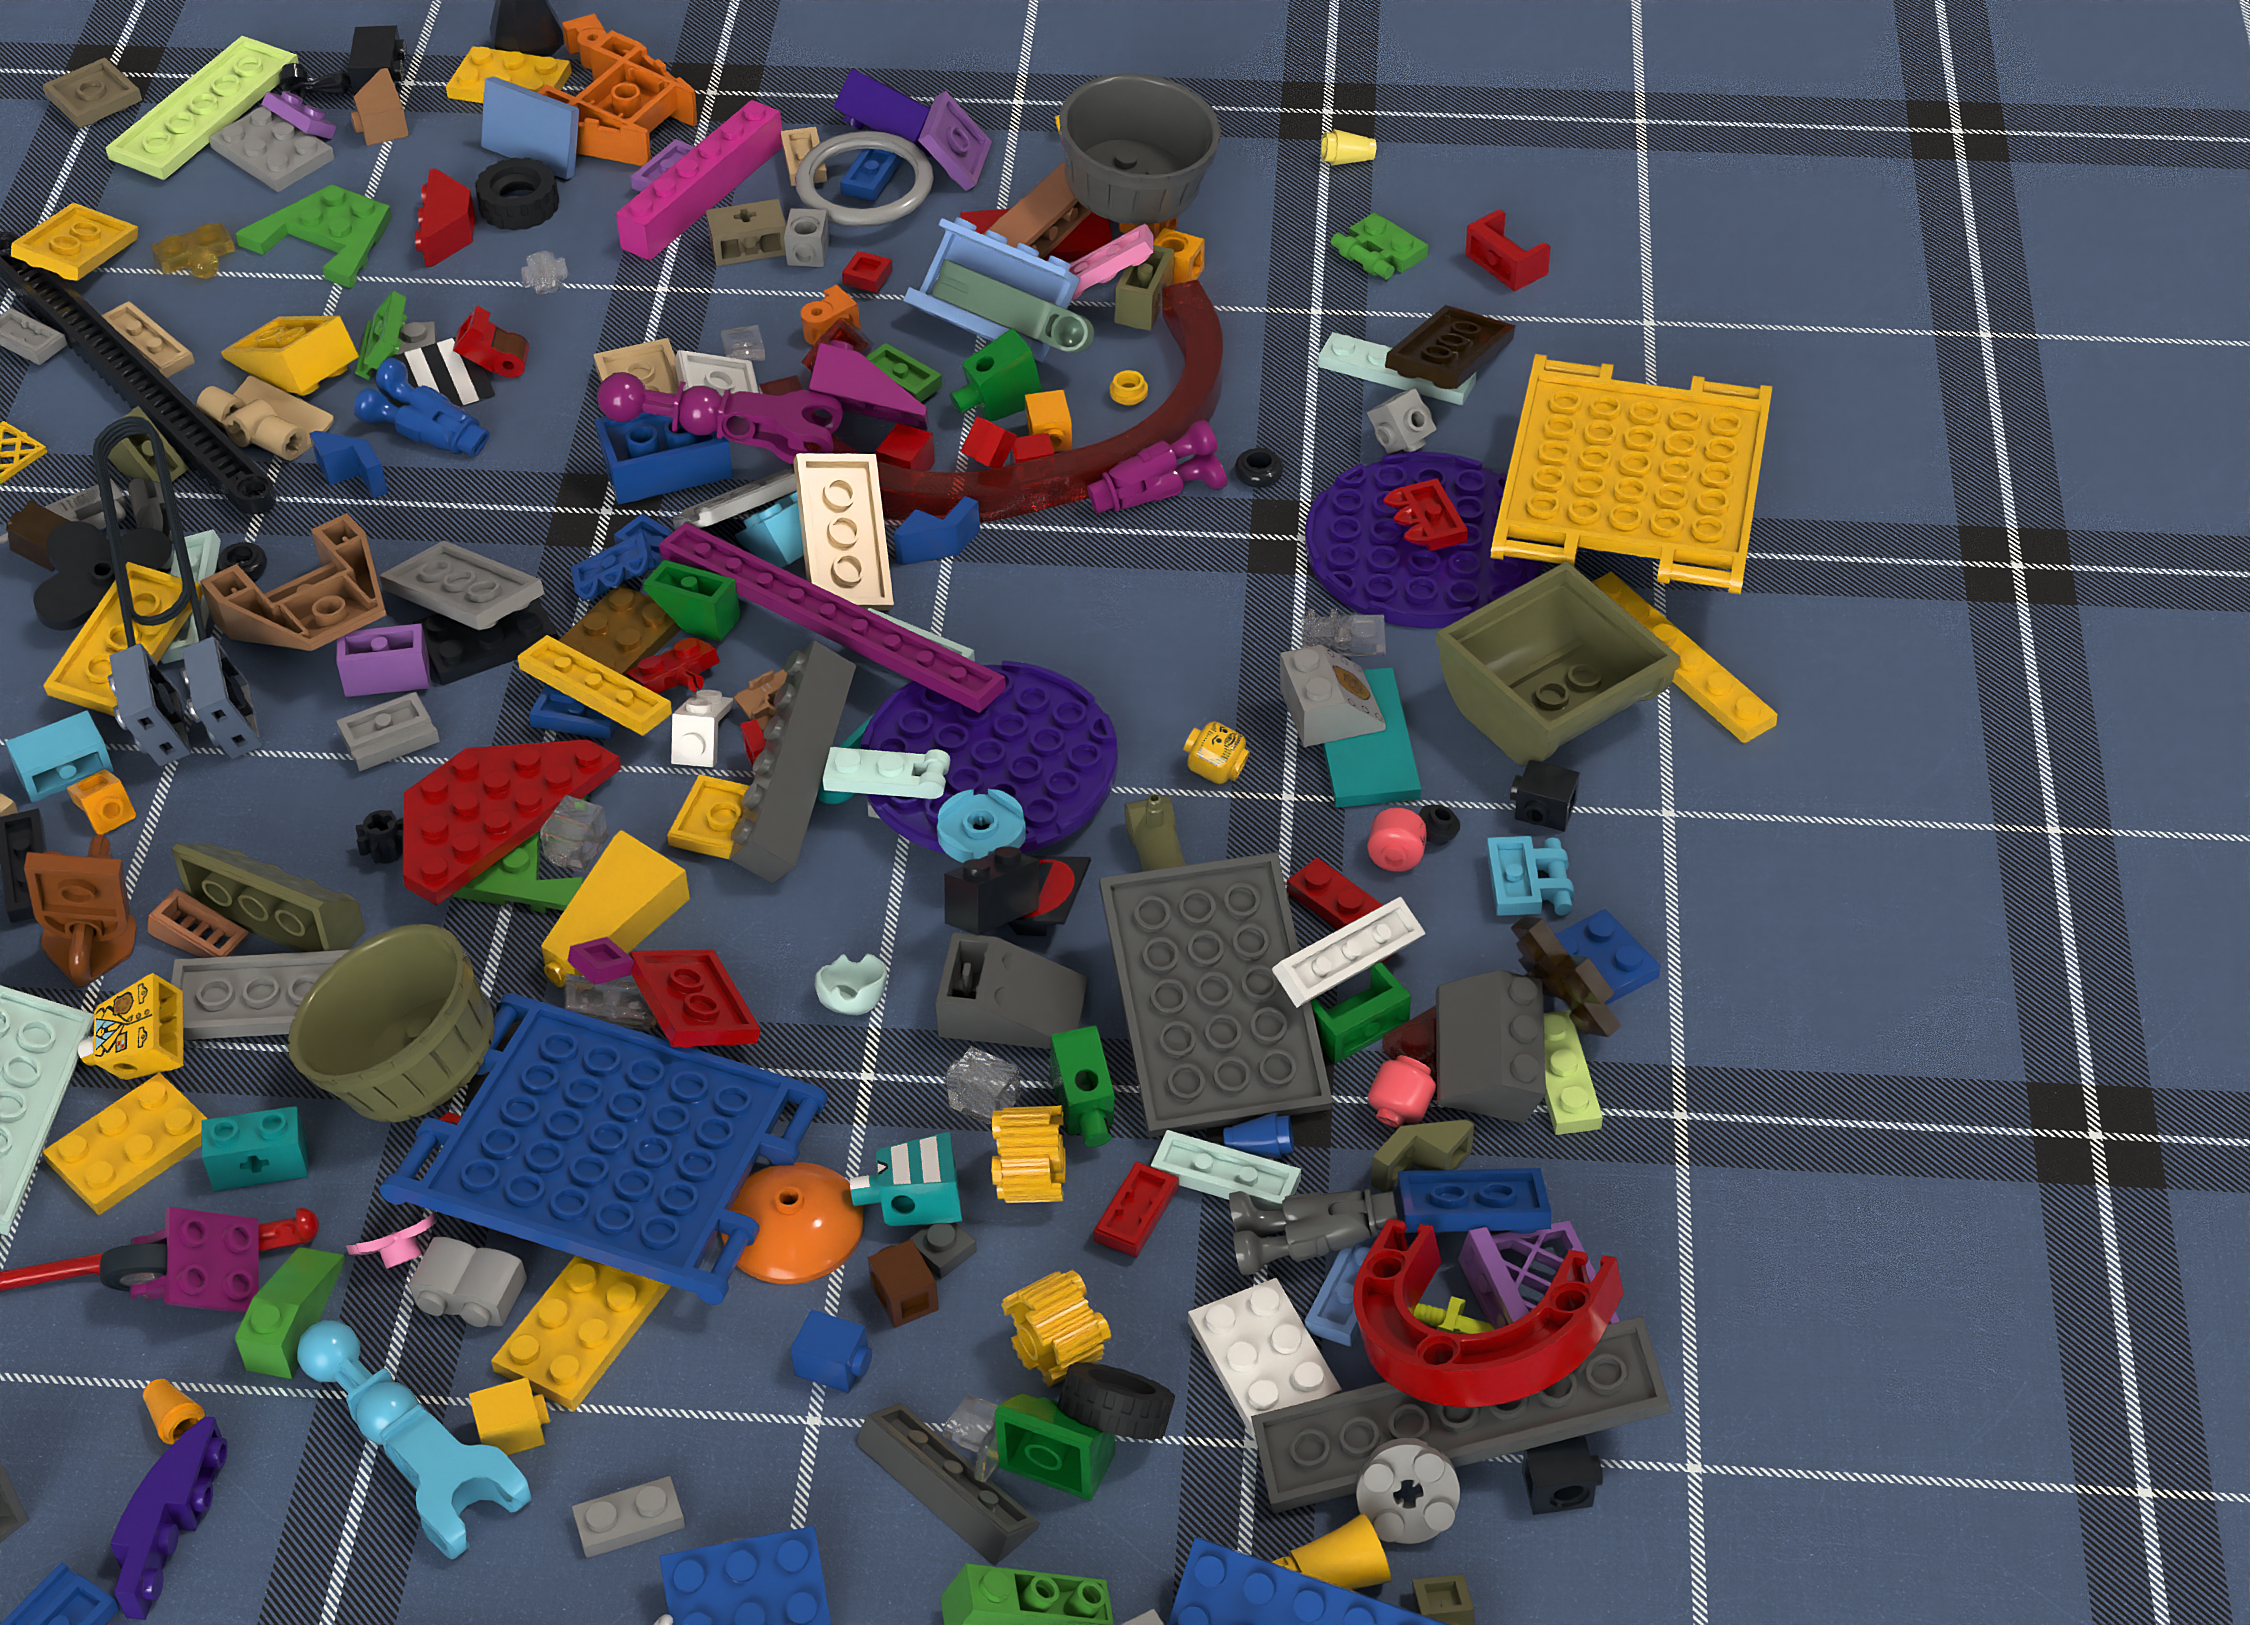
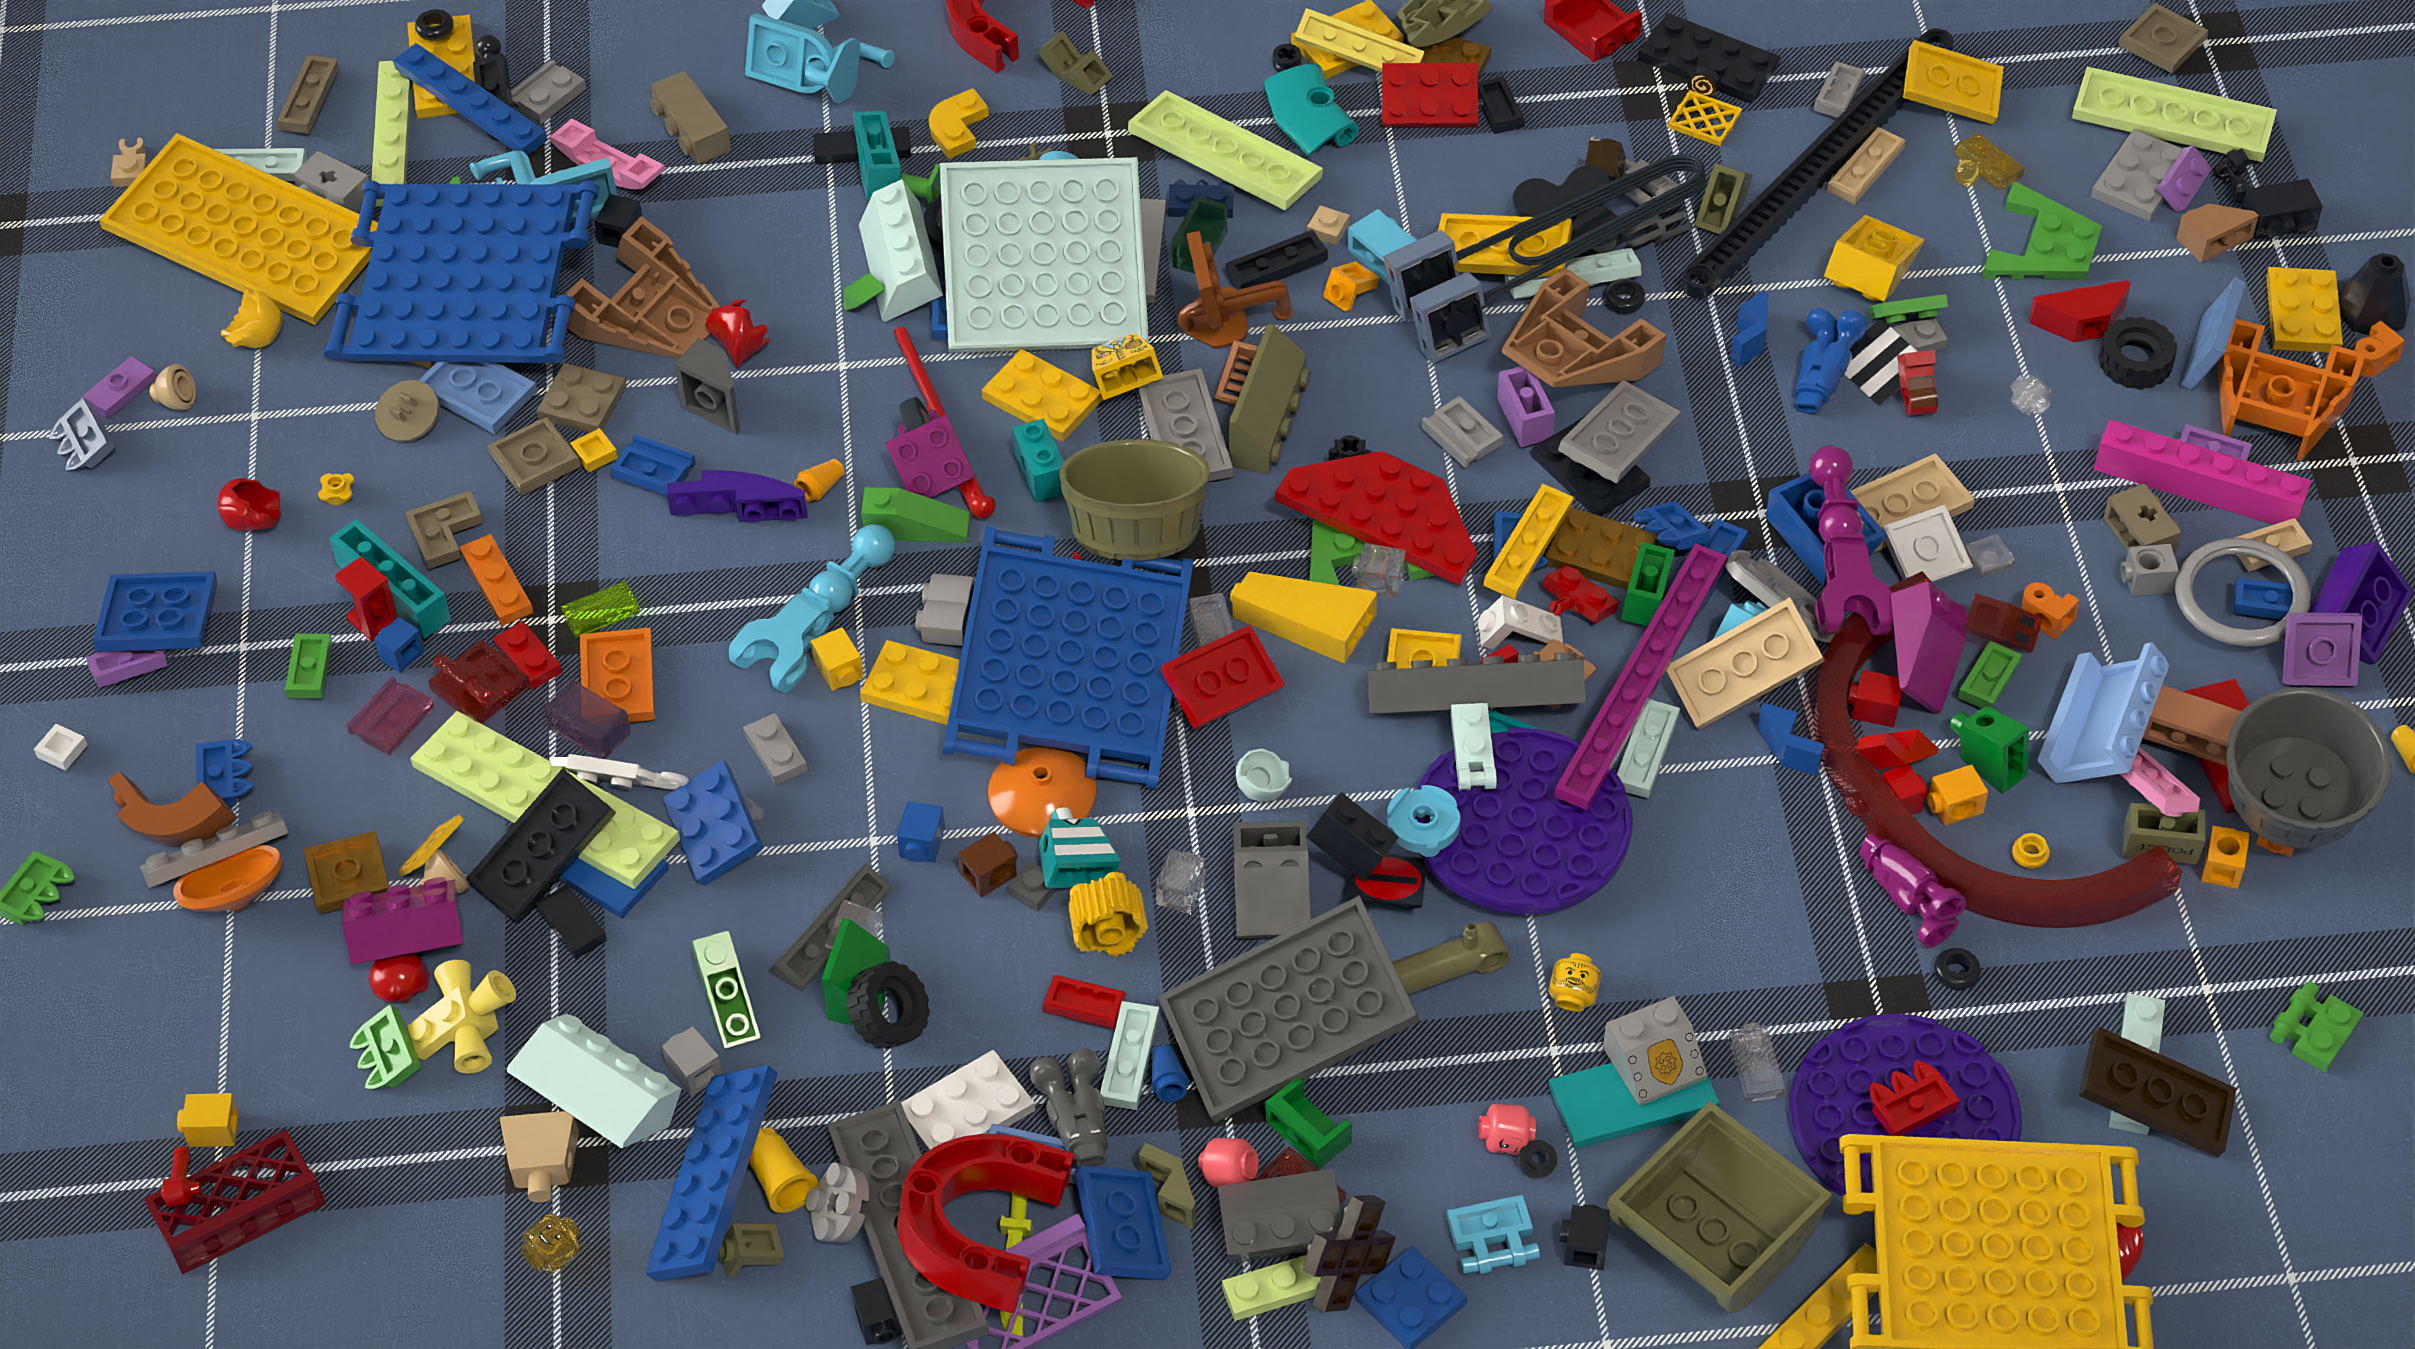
camera: 80 degrees right, 5 degrees up
(264, 417) = (1792, 263): tan panel -> none
(397, 1246) = (969, 558): bright pink animal -> none
(600, 960) = (1235, 607): magenta plate -> none
(867, 271) = (2122, 624): red plate -> none
(1013, 308) = (2080, 729): sand green piece -> none
(1055, 1325) = (950, 958): yellow brick -> none
(1082, 1084) = (1184, 941): green torso -> none
(1331, 895) = (1428, 1109): red plate -> none
(1348, 951) = (1345, 1093): white plate -> none
(1402, 422) = (2039, 1067): light grey brick -> none
(1501, 256) = (2342, 1133): red panel -> none

